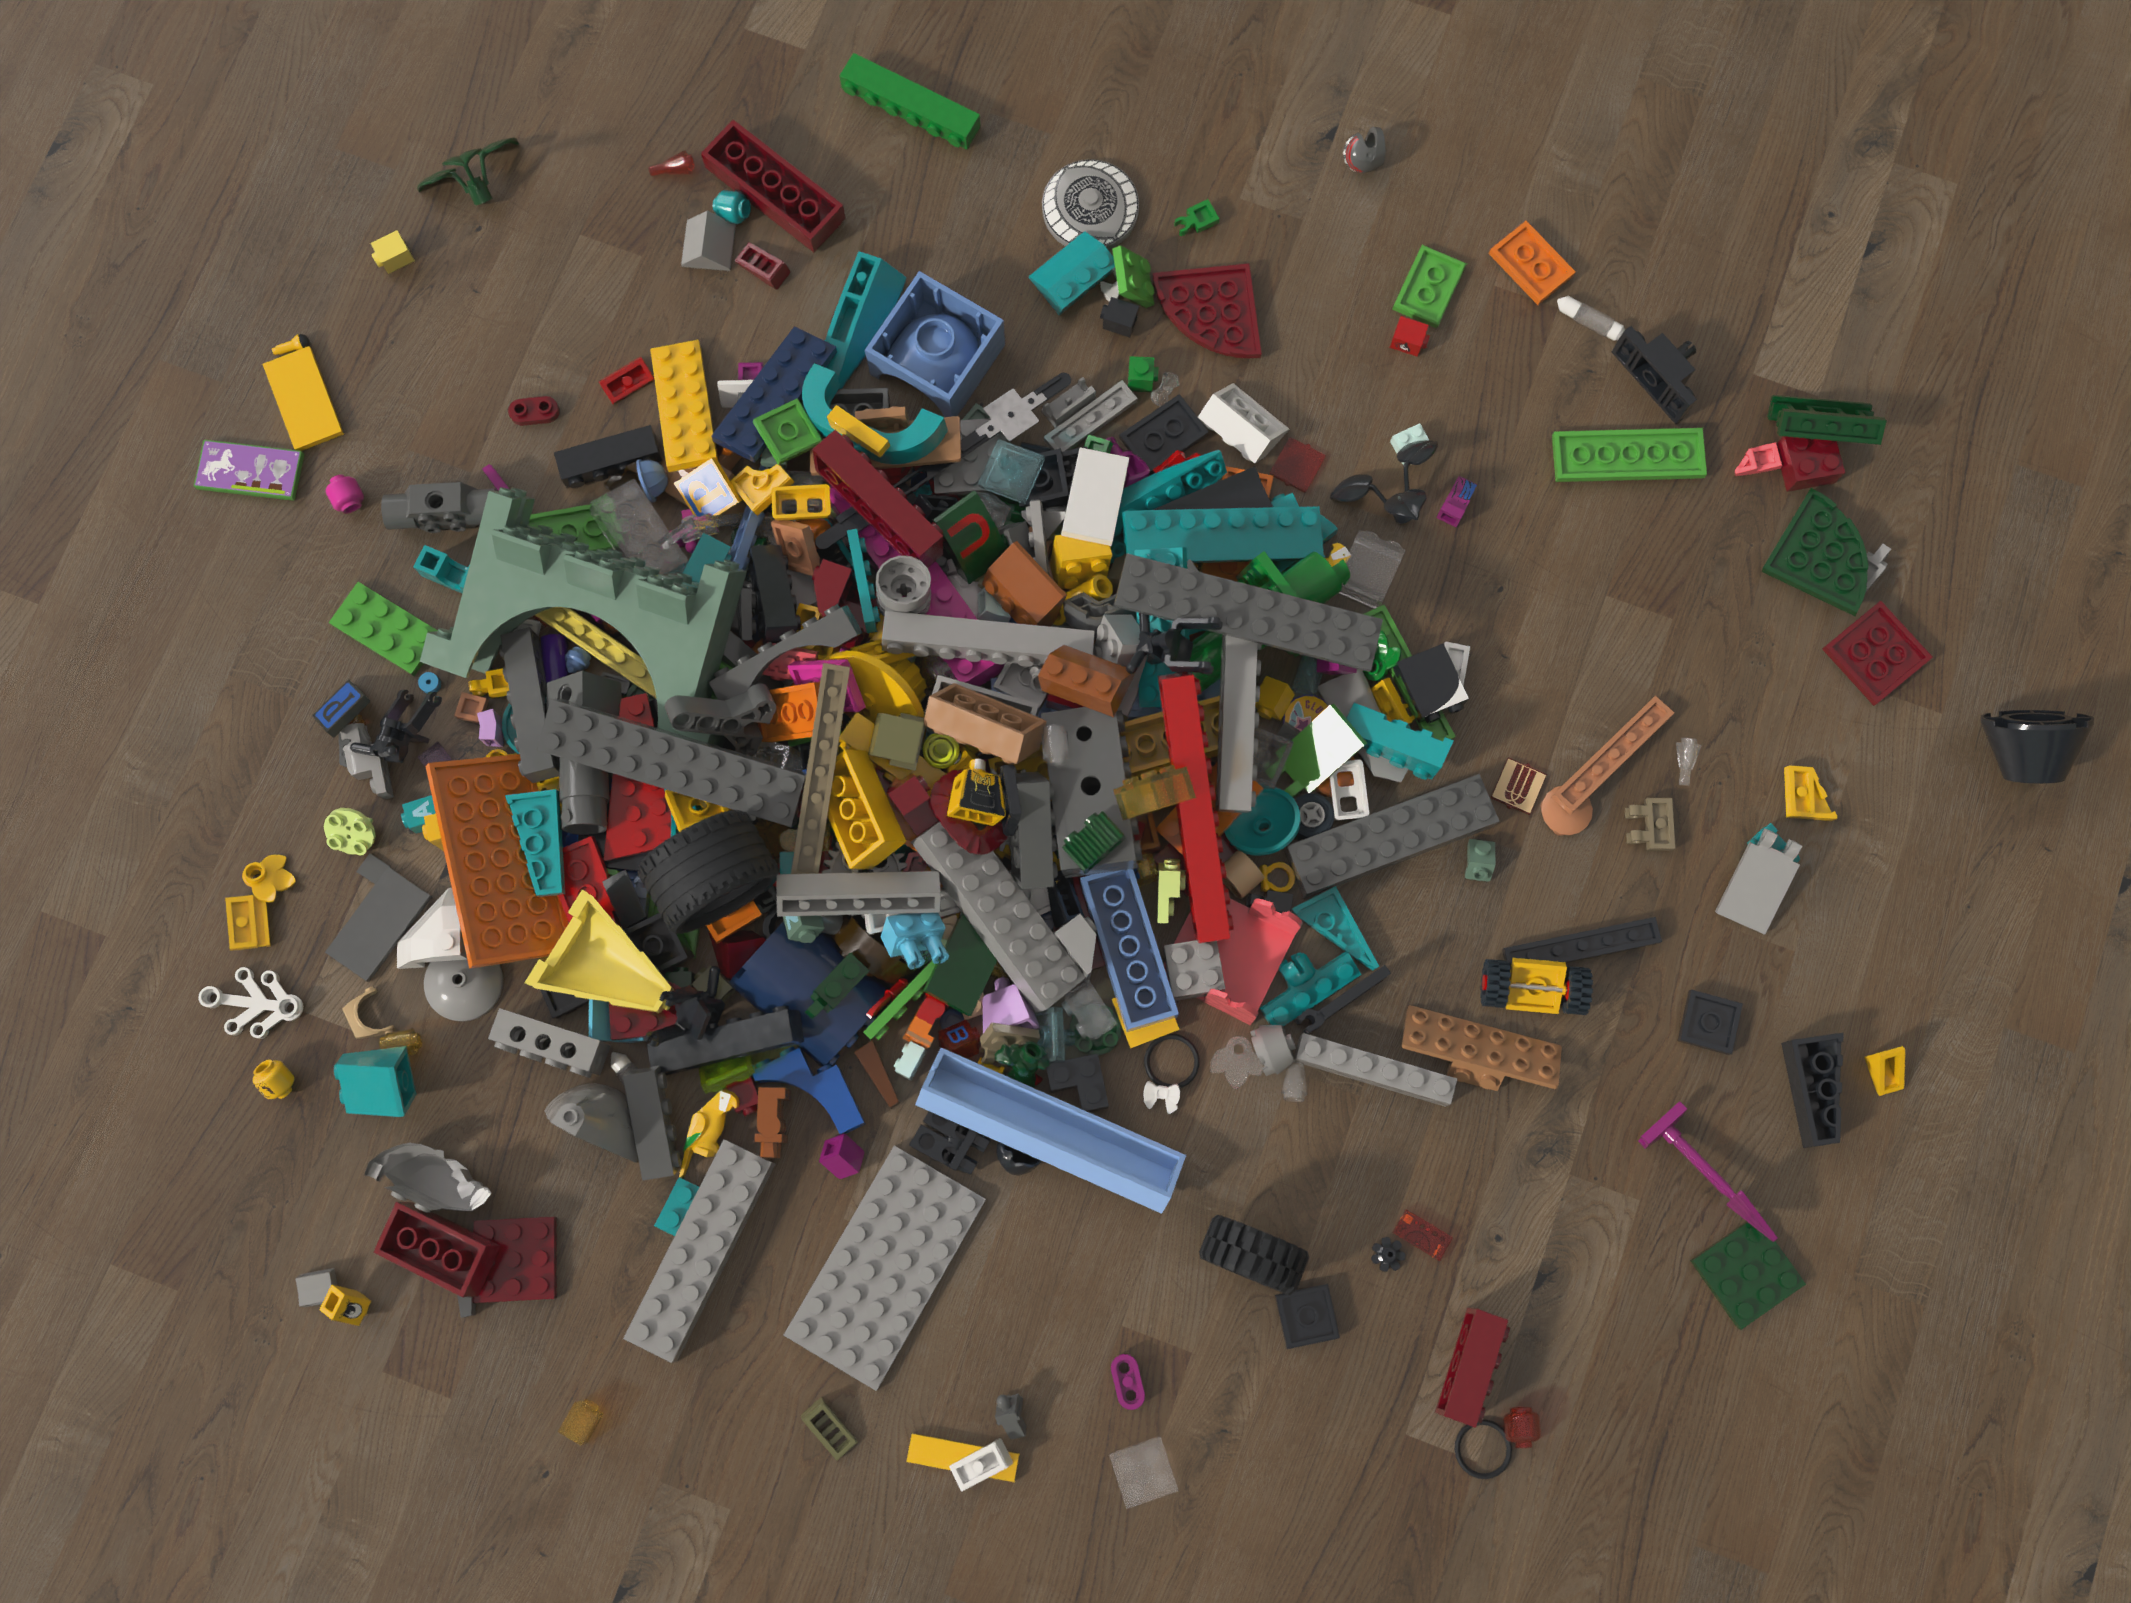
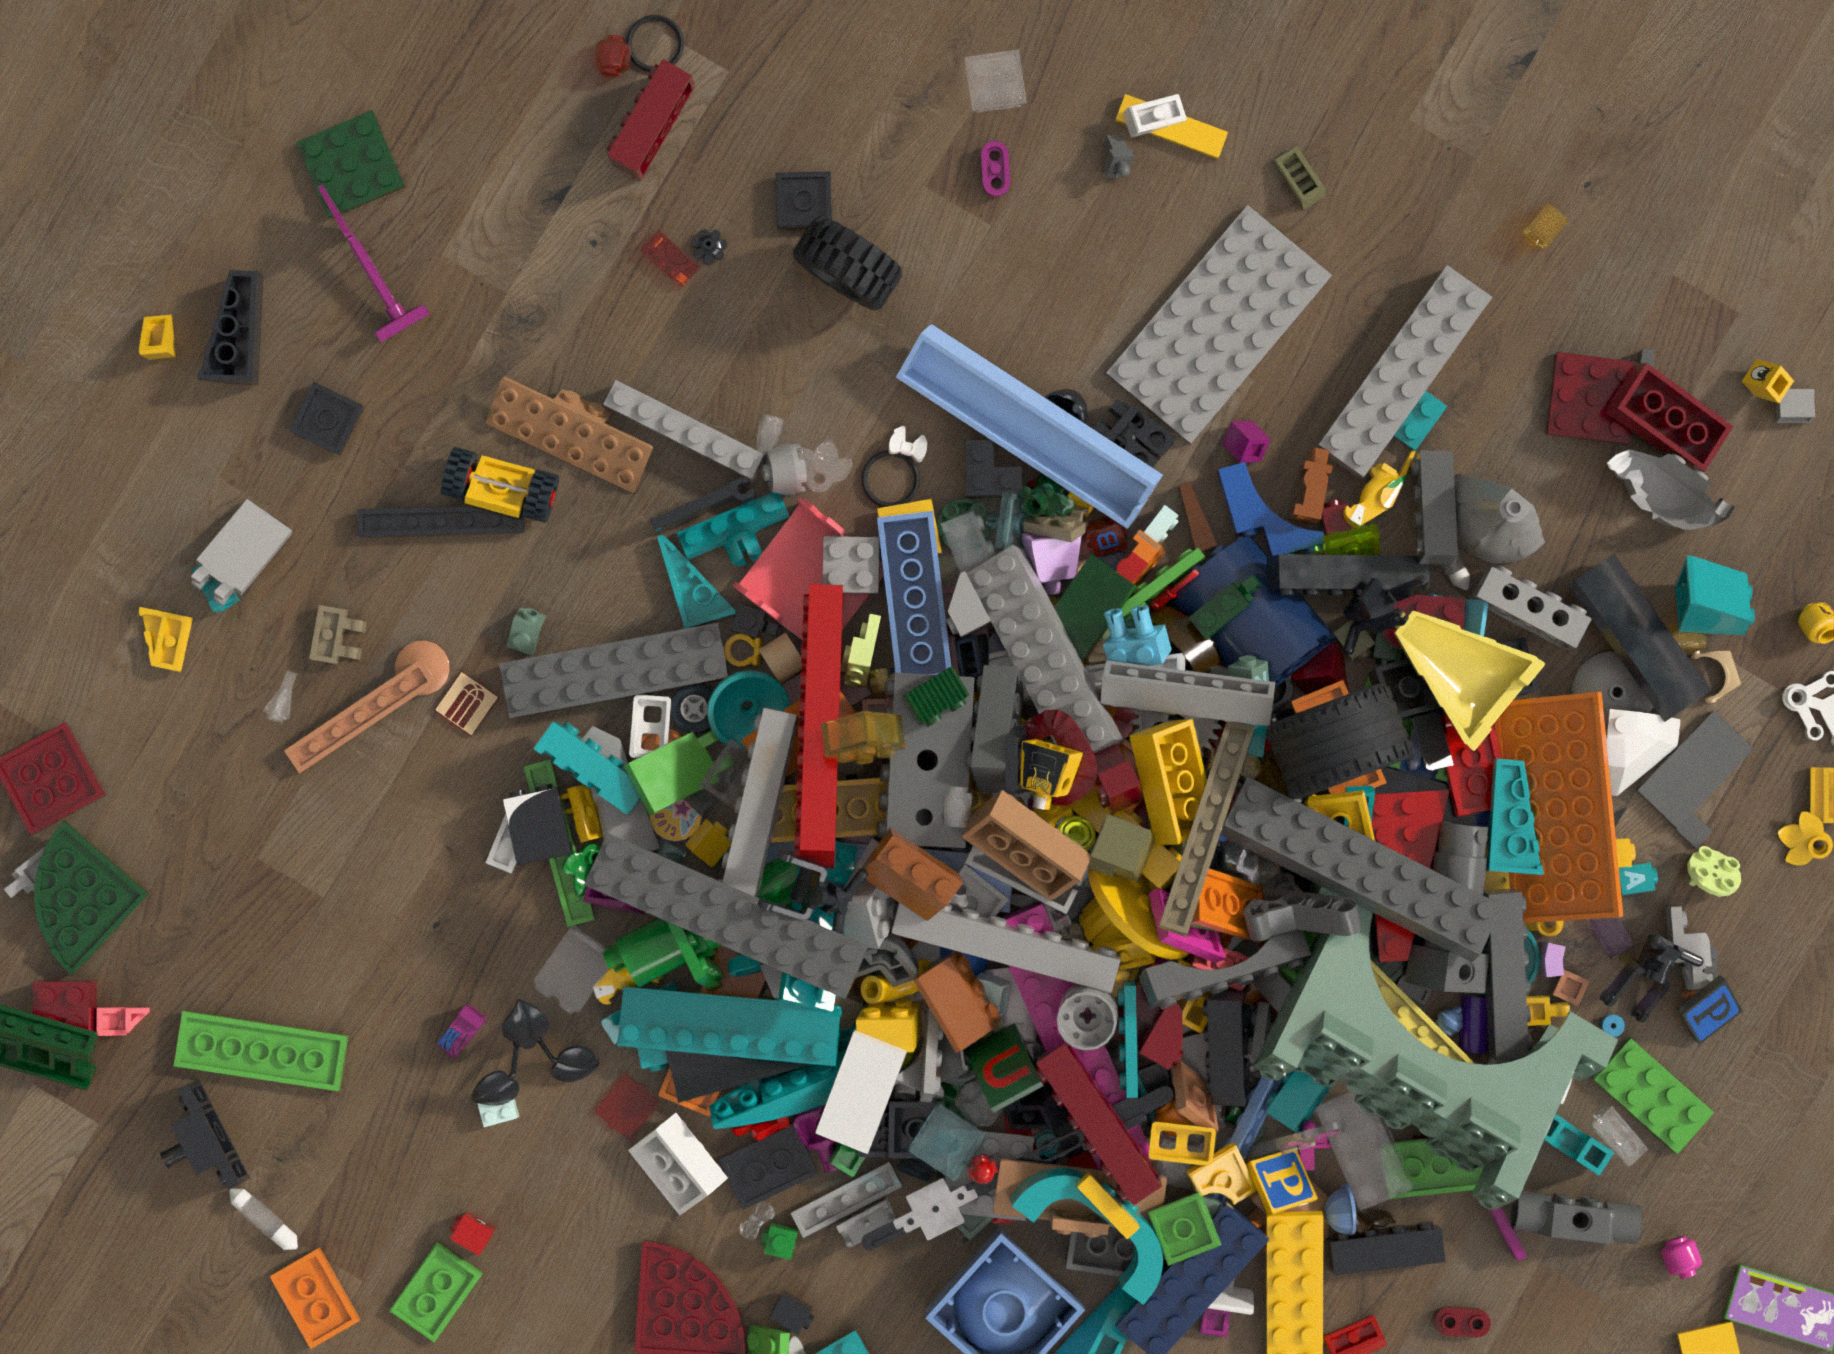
camera: 165 degrees left, 10 degrees up
(412, 584) = (1618, 1135): none -> clear bracket
(442, 1032) = (1639, 637): none -> black arch
(975, 448) = (982, 1168): none -> red plate

